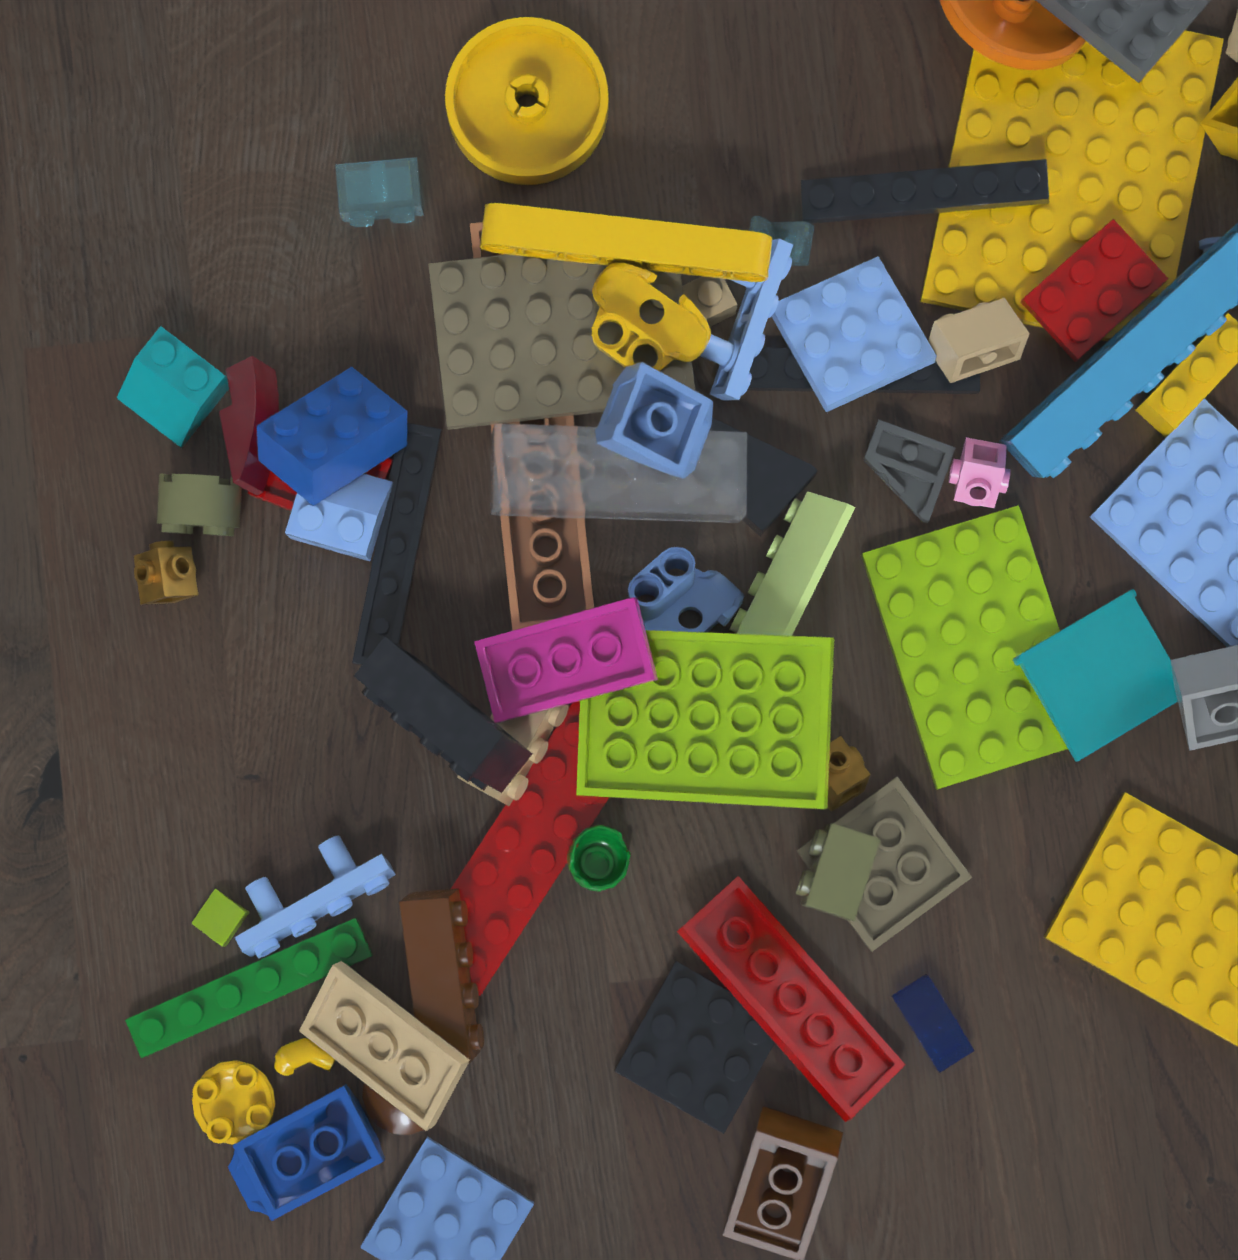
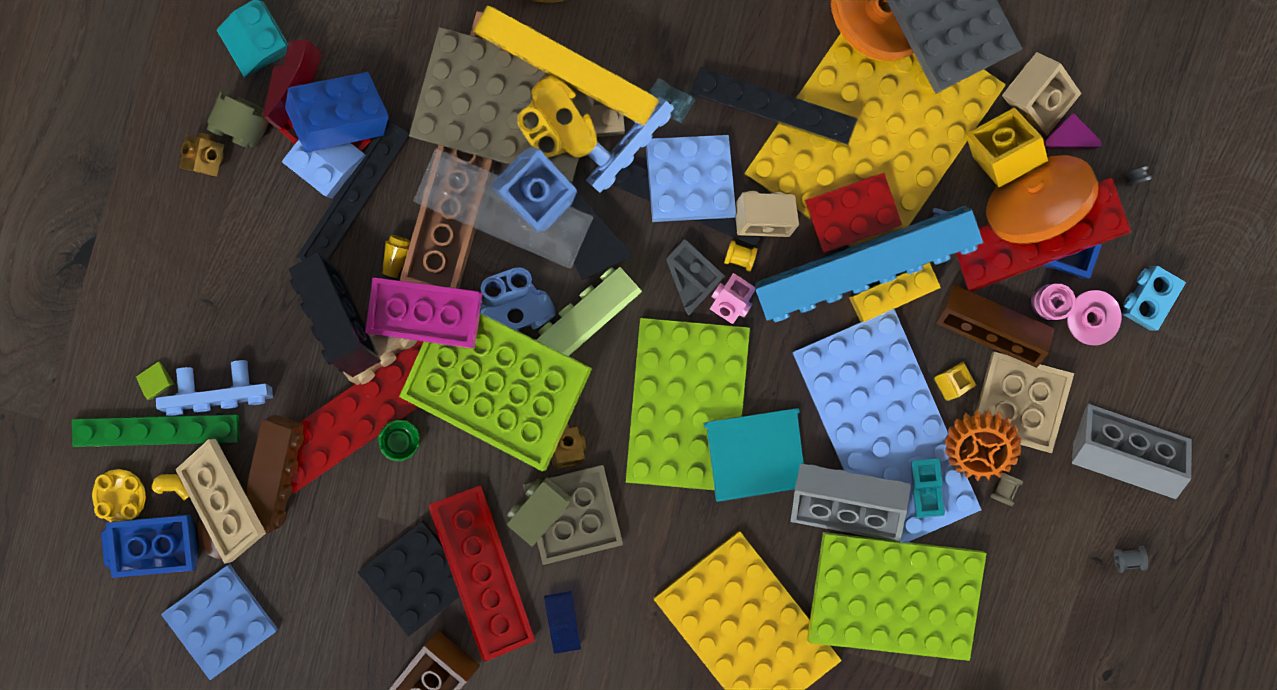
camera: 25 degrees right, 5 degrees up
(489, 603) = (395, 255): none -> yellow cone
(964, 412) = (740, 255): none -> yellow bush

